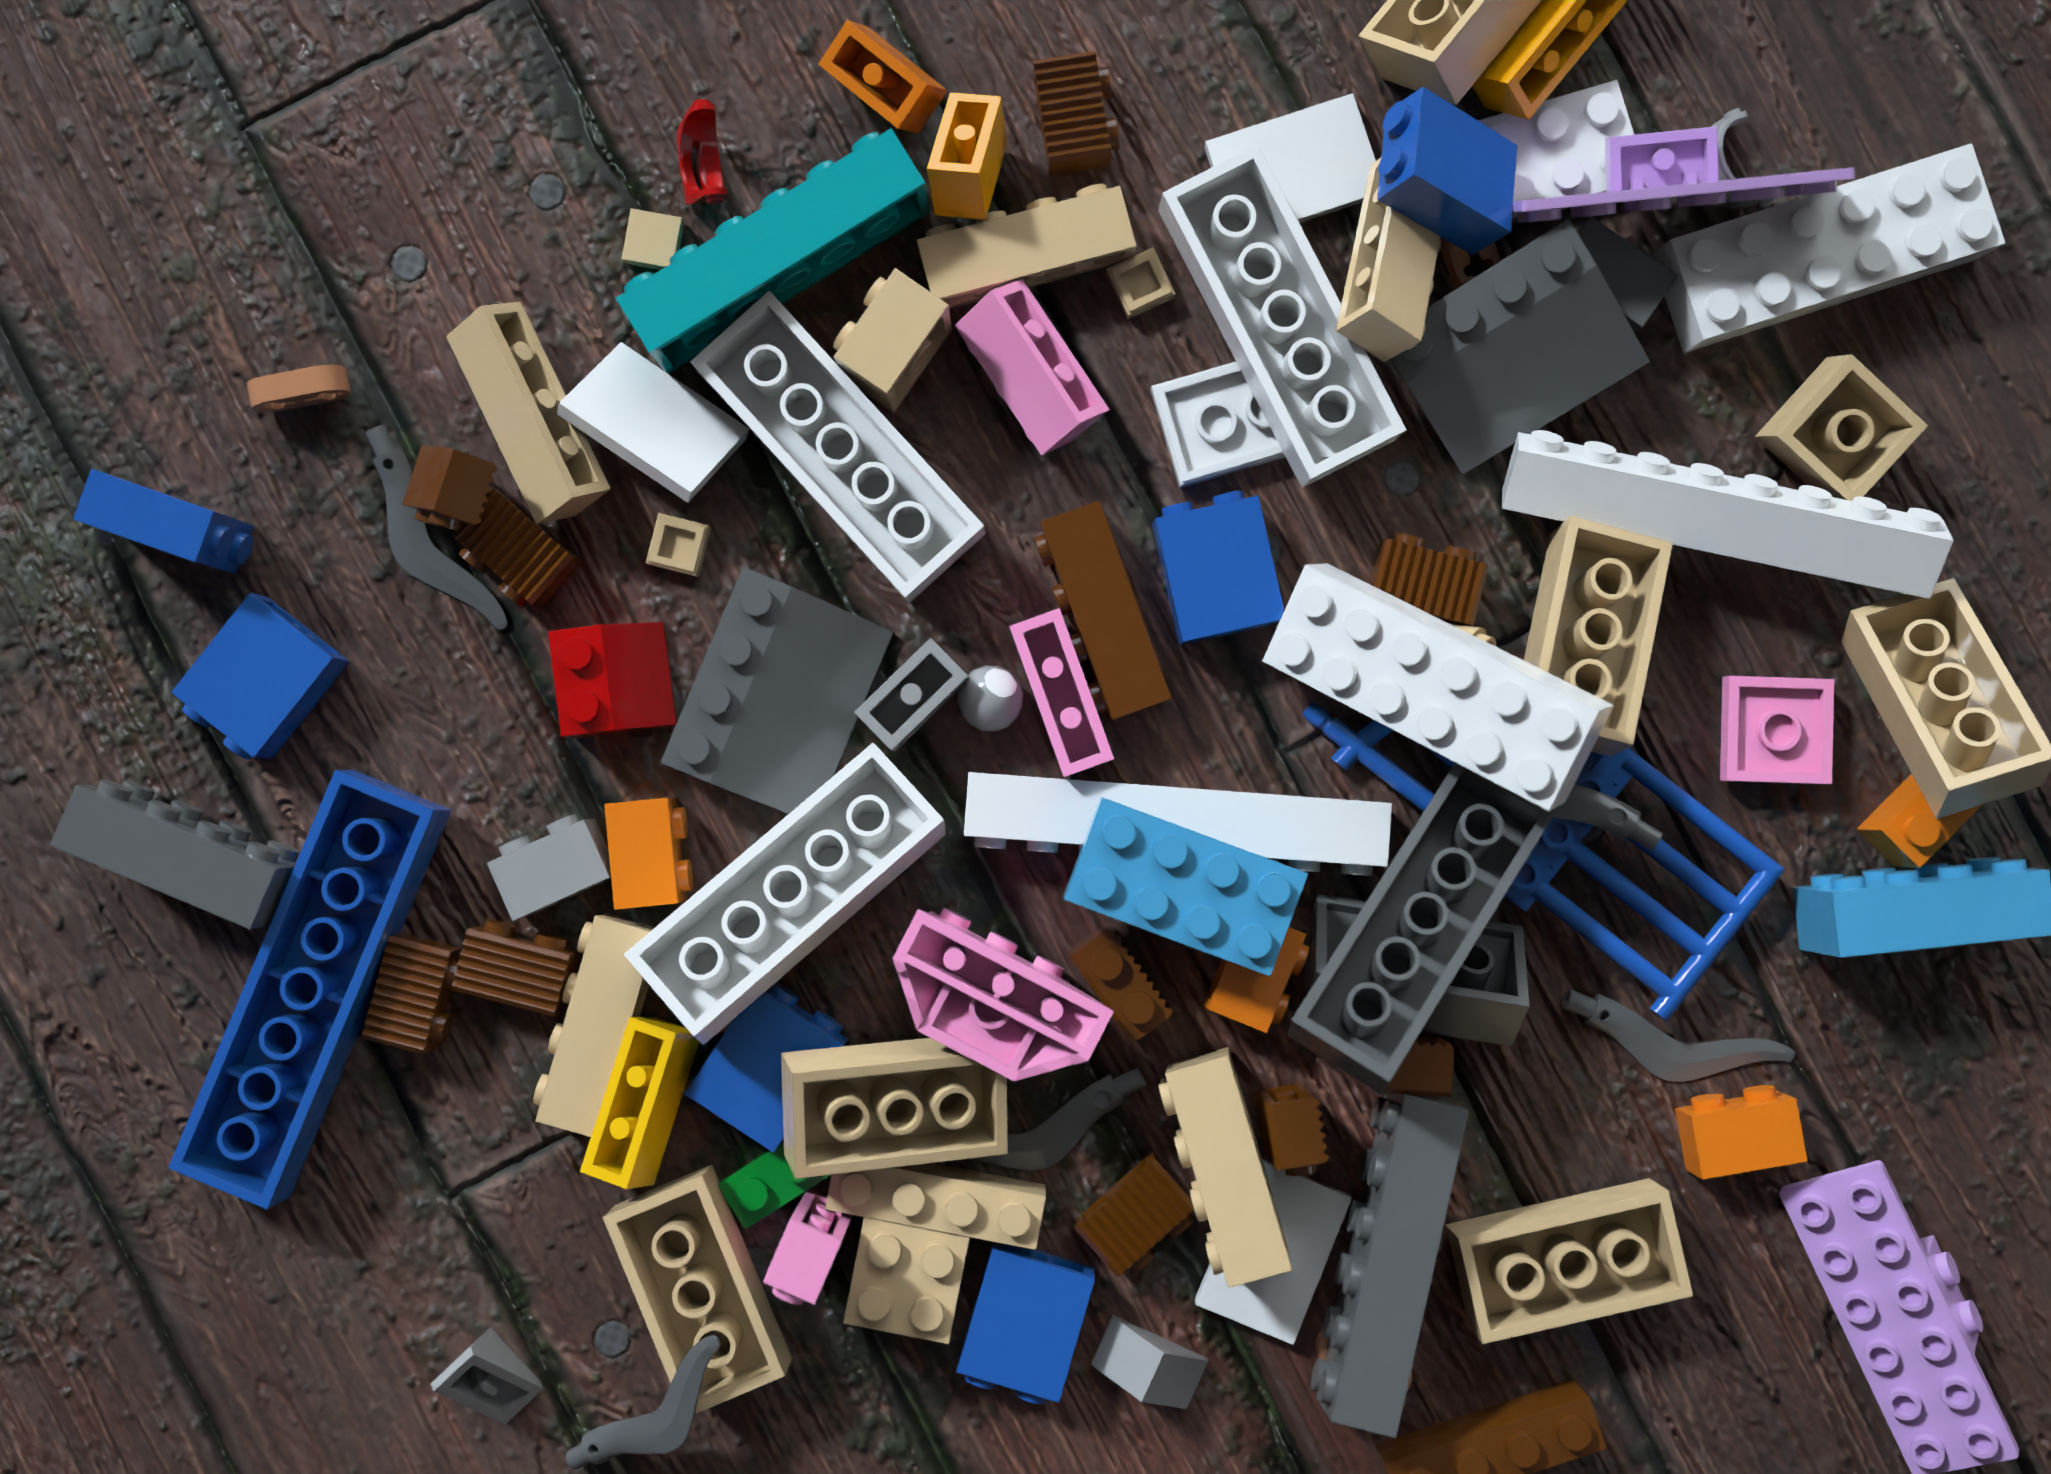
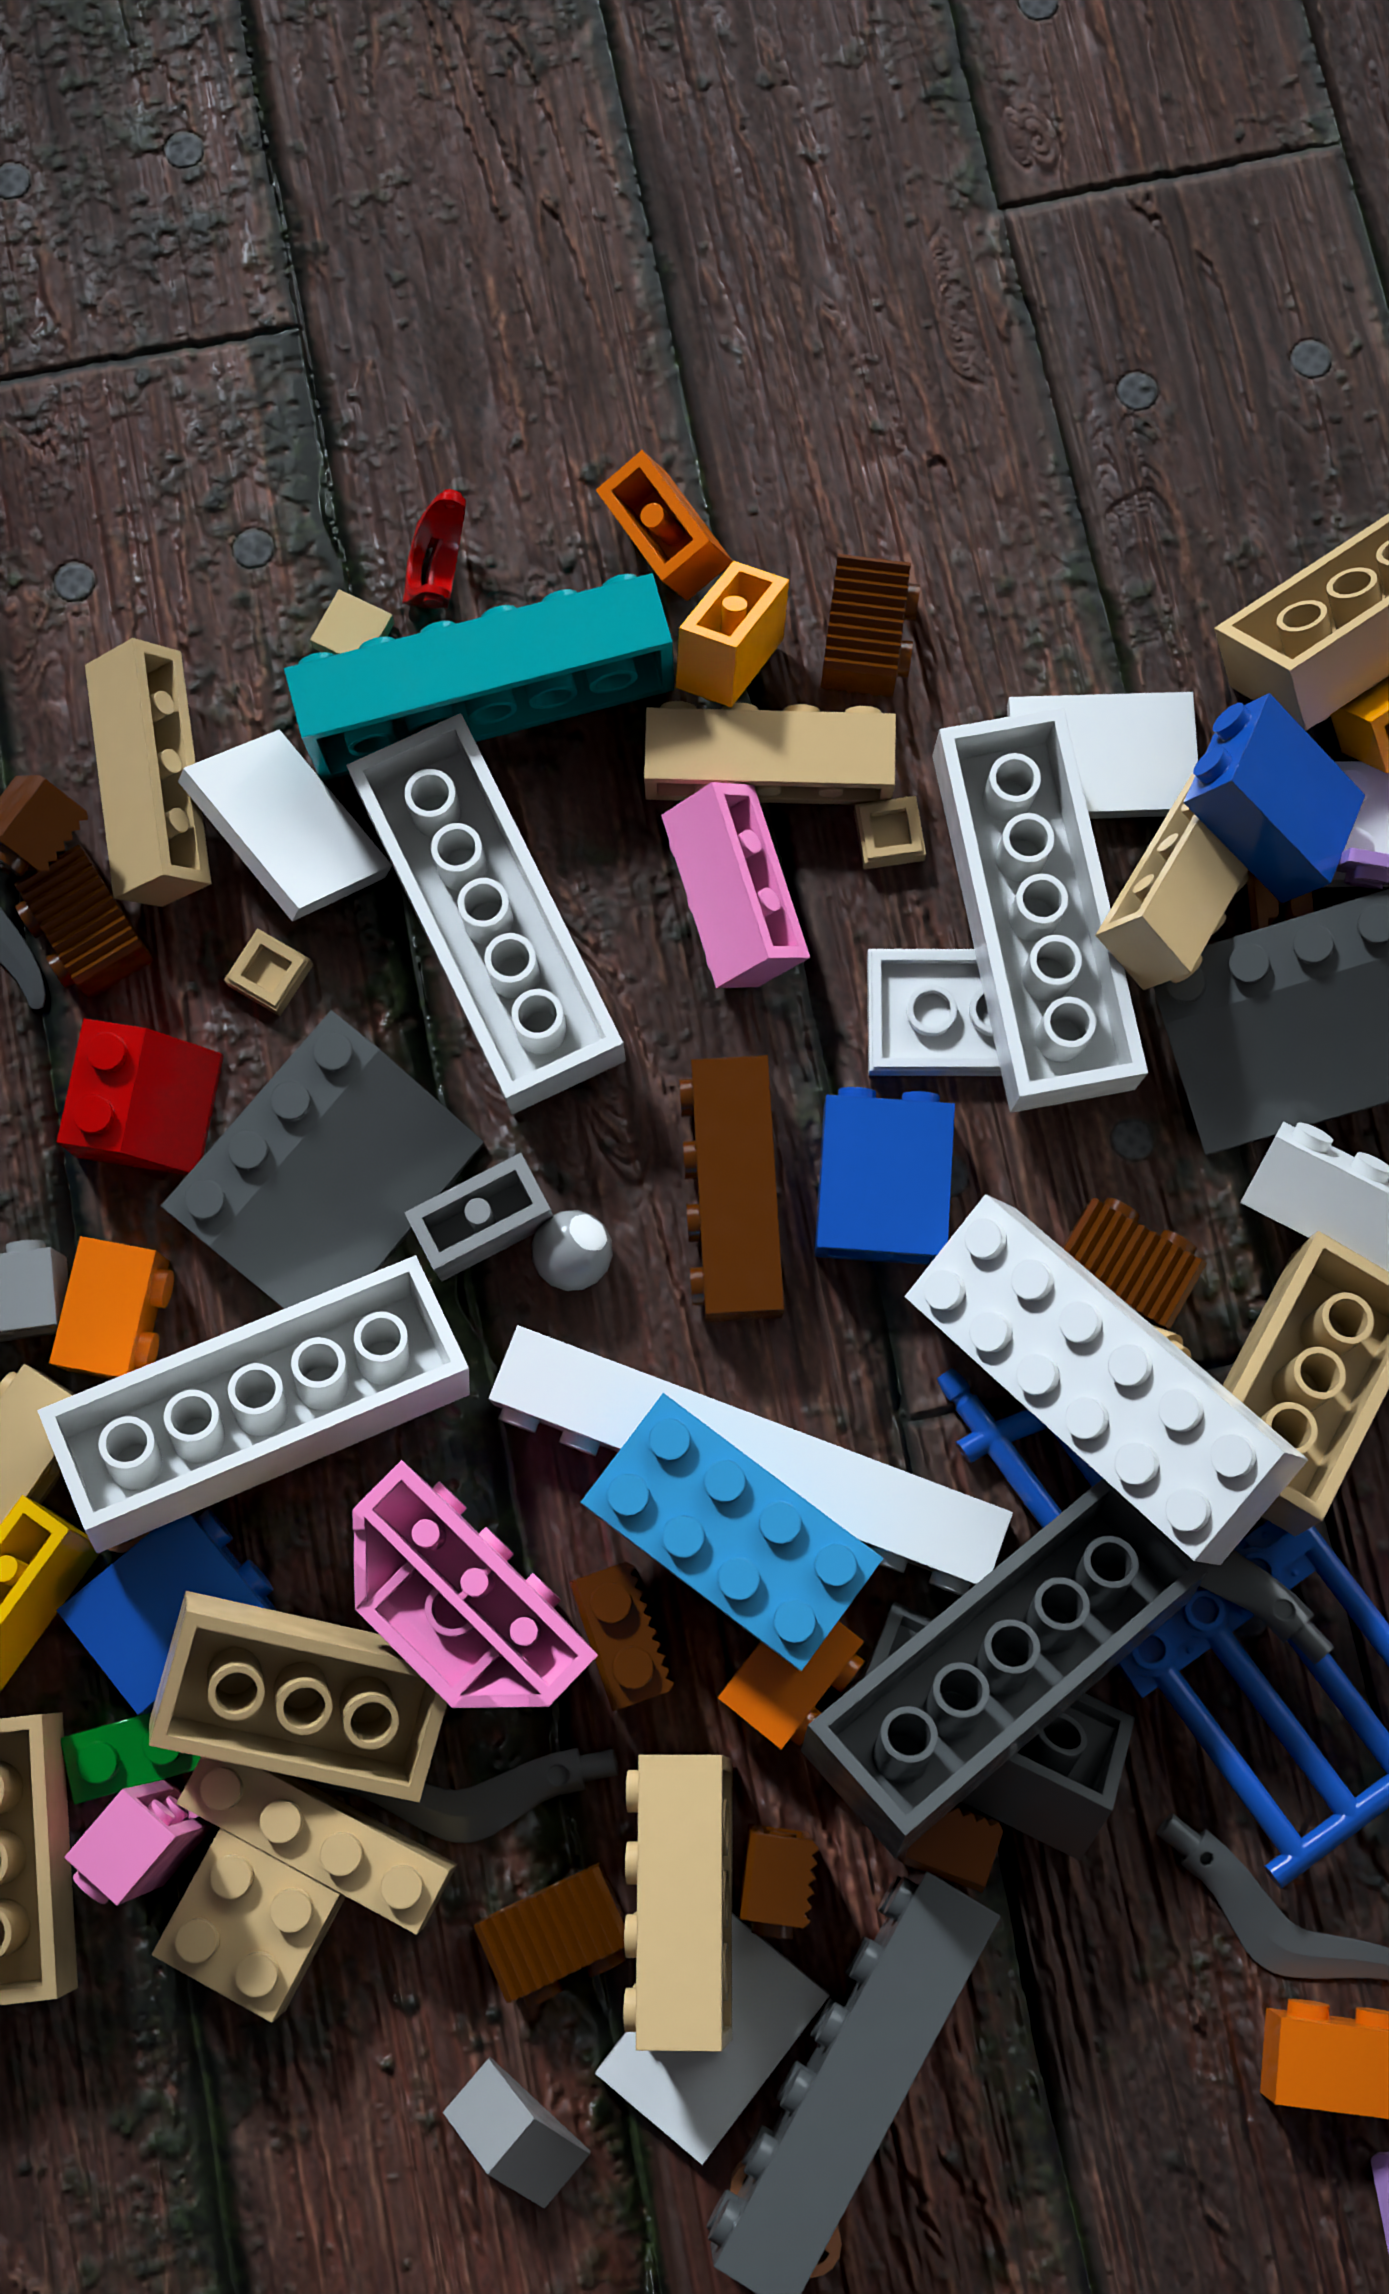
camera: 15 degrees right, 10 degrees down
(892, 338) = (585, 808): tan brick -> none
(1025, 1322) = (376, 2028): blue brick -> none
(1061, 692) = (655, 1266): bright pink brick -> none
(1569, 1260) = (1079, 2160): tan brick -> none

